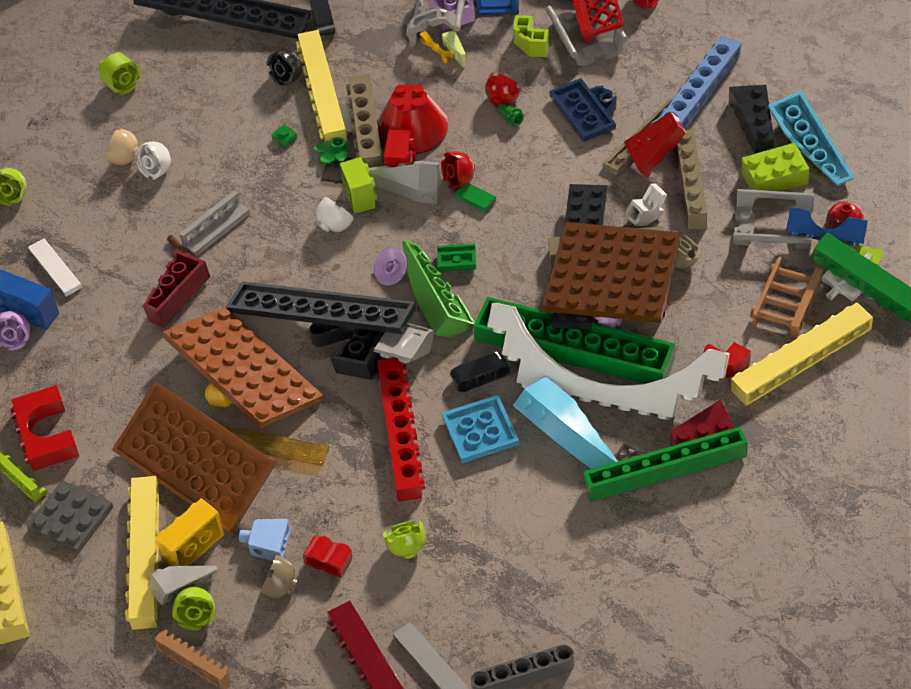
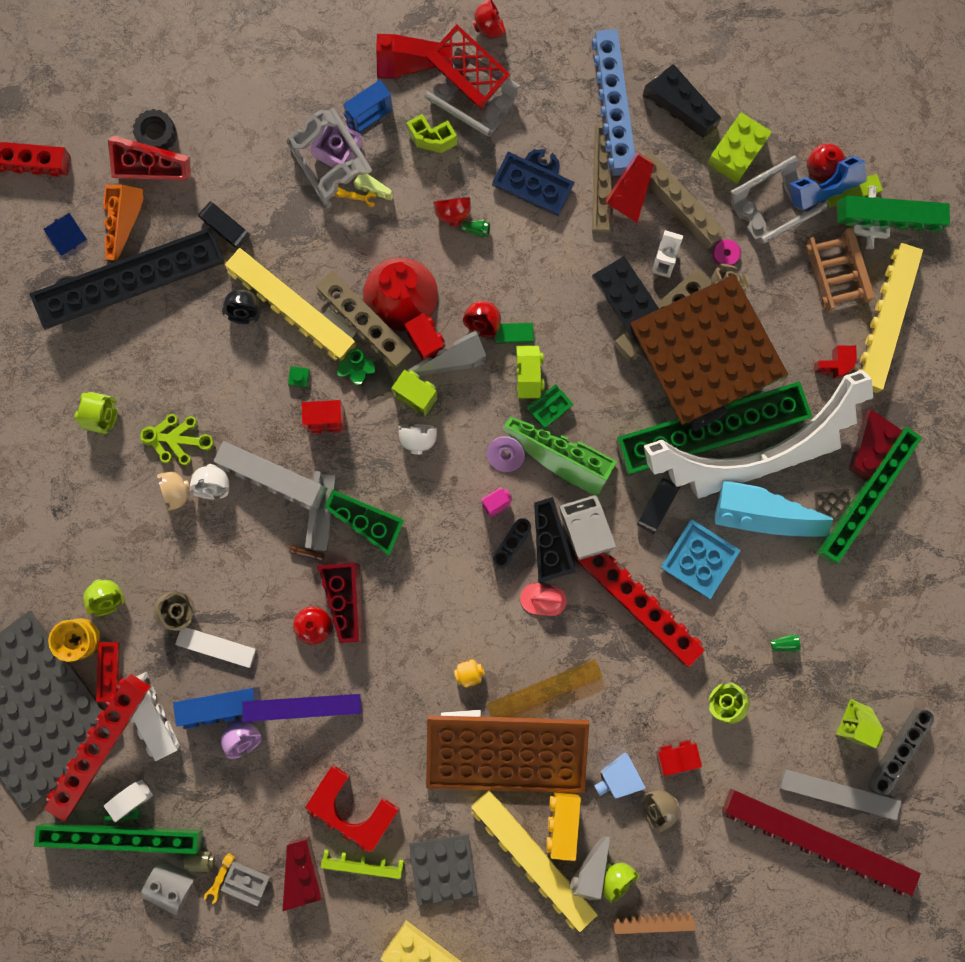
camera: 45 degrees left, 30 degrees up
(48, 219) = (174, 610): none -> dark tan cylinder
(74, 330) = (300, 707): none -> dark purple tile
(134, 292) = (312, 625): none -> red cylinder
(144, 112) = (173, 438): none -> lime plant
(200, 175) = (269, 474): none -> light grey brick
(242, 367) = (468, 638): dark orange plate -> none
(245, 250) = (371, 522): none -> green wedge
(275, 162) = (323, 416): none -> red brick
(322, 307) = (491, 540): black plate -> none
(330, 384) = (543, 599): none -> coral piece
(350, 283) = (496, 502): none -> dark pink brick
(455, 226) = (529, 371): none -> lime brick
(498, 532) = (788, 643): none -> green cone
(498, 619) = (861, 725): none -> lime wedge
(705, 232) = (726, 245): none -> dark pink piece
(805, 130) = (744, 95): medium azure wedge -> none

